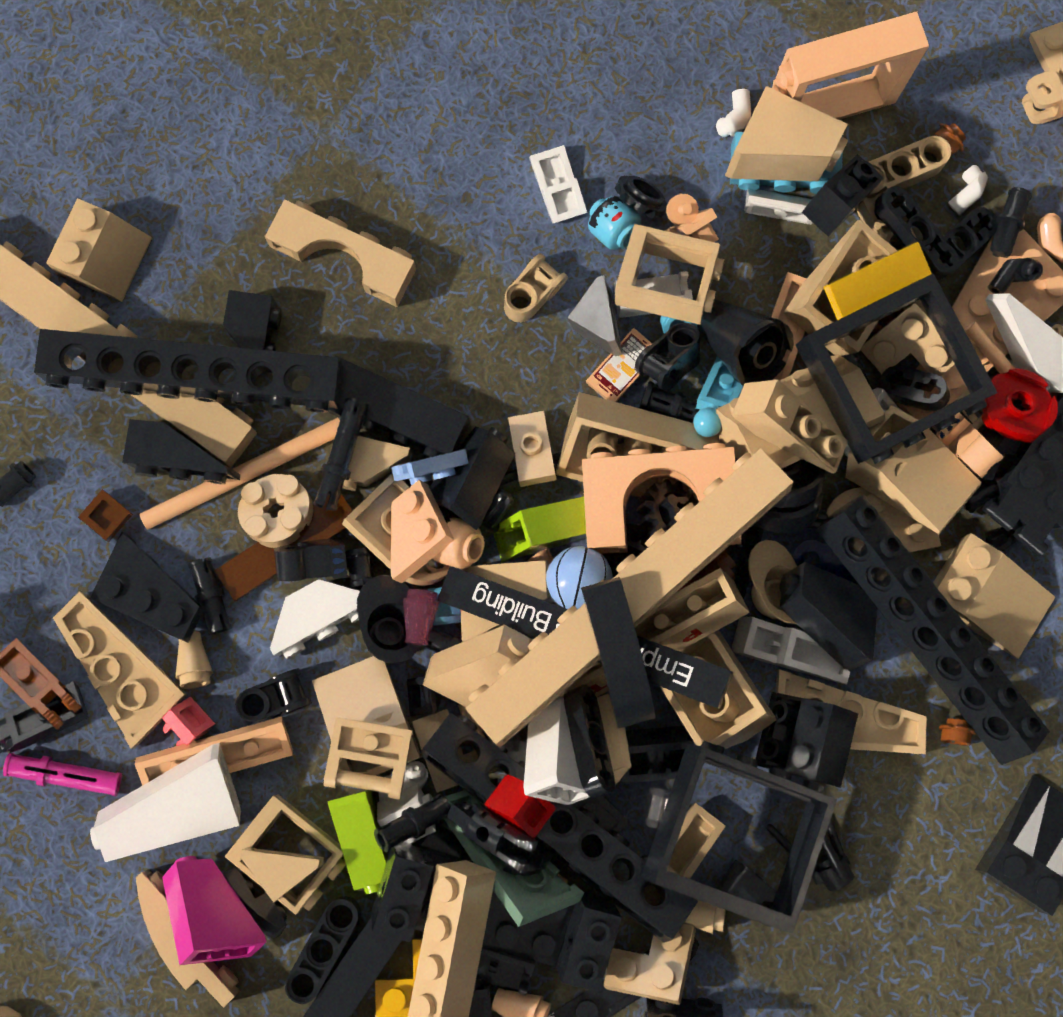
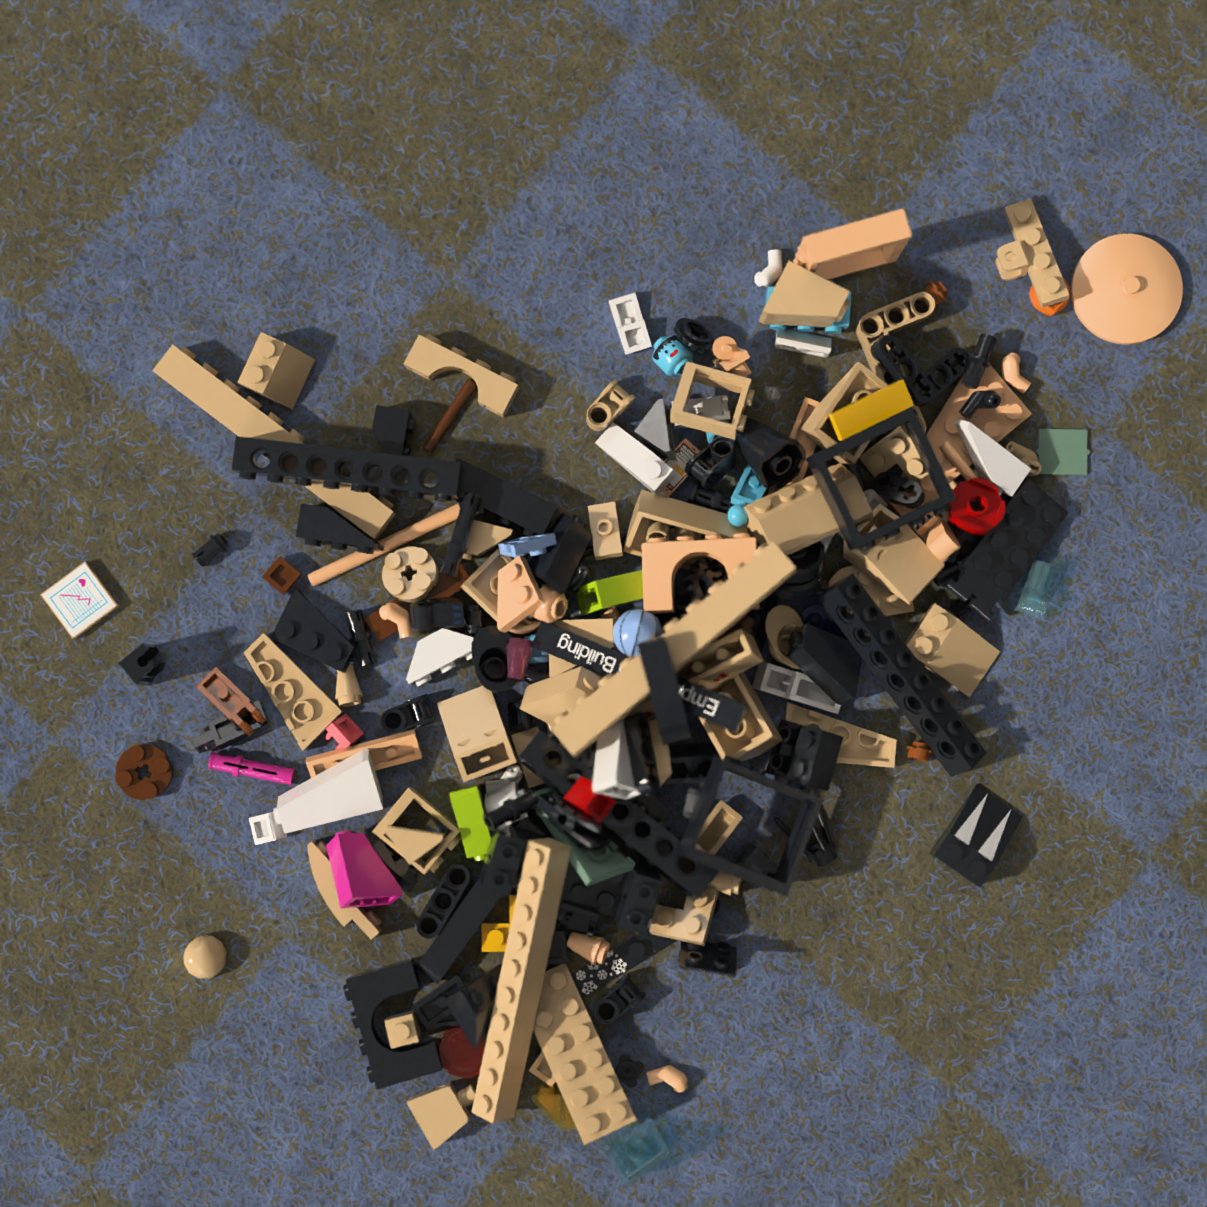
camera: 10 degrees right, 5 degrees up
(81, 856) = (266, 829): none -> white slope
(261, 565) = (399, 616): none -> light nougat arm
(326, 306) = (449, 416): none -> reddish brown piece
(368, 744) = (480, 752): tan plate -> none
(571, 355) = (636, 458): none -> white slope
(789, 423) = (797, 521): tan slope -> none
(842, 194) = (848, 340): black slope -> none
(972, 192) = (952, 335): white arm -> none

